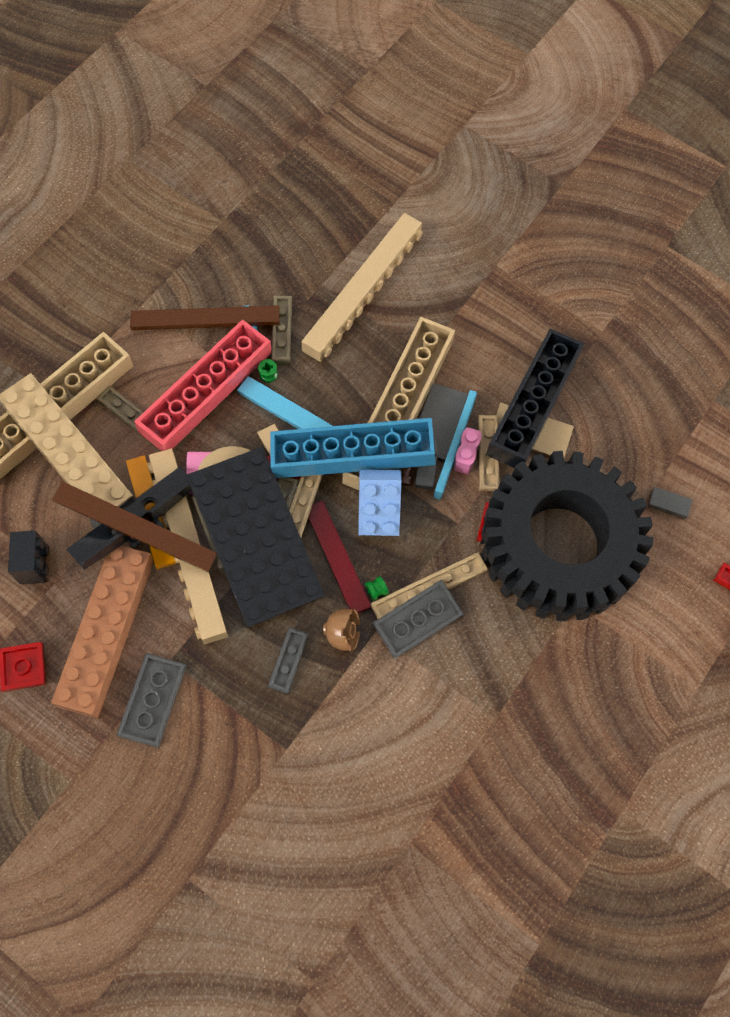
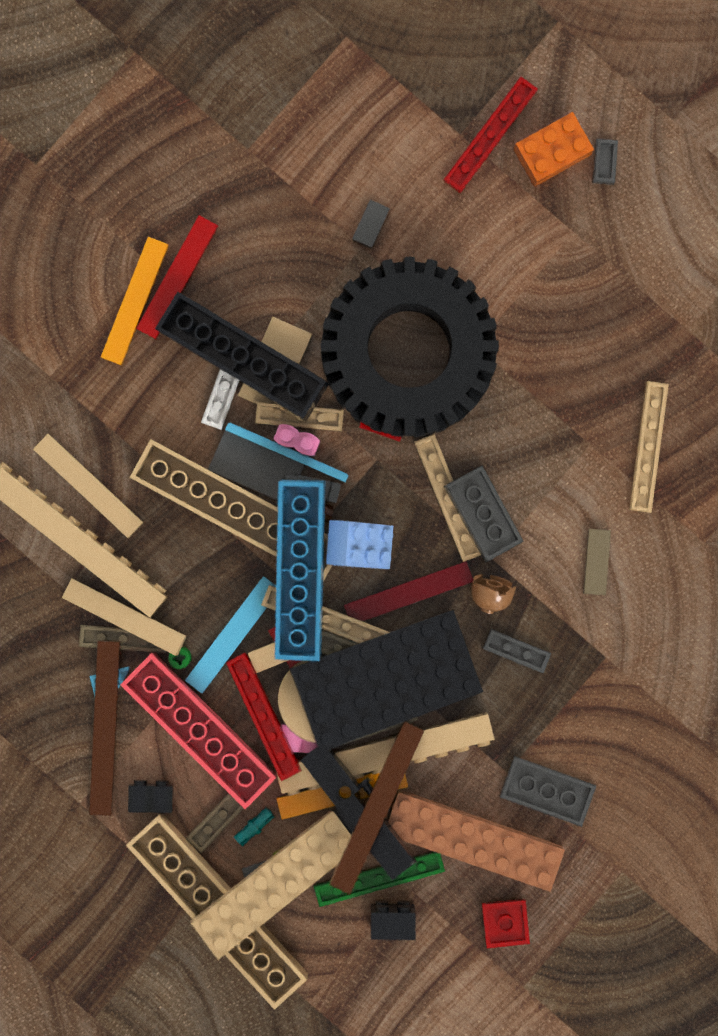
camera: 85 degrees left, 20 degrees up
(66, 535) = (377, 879): none -> green tile
(119, 439) = (254, 826): none -> teal pin
(145, 355) = (150, 797): none -> black brick
(216, 437) = (263, 717): none -> red tile
(300, 326) = (124, 617): none -> tan tile
(376, 588) = (448, 554): green wheel -> none
(380, 732) = (596, 561): none -> dark tan tile
(408, 296) = (88, 485): none -> tan tile
(493, 390) = (220, 400): none -> white tile
(500, 777) = (648, 446): none -> tan tile
(569, 321) = (134, 301): none -> light orange tile
(605, 355) = (178, 274): none -> red tile

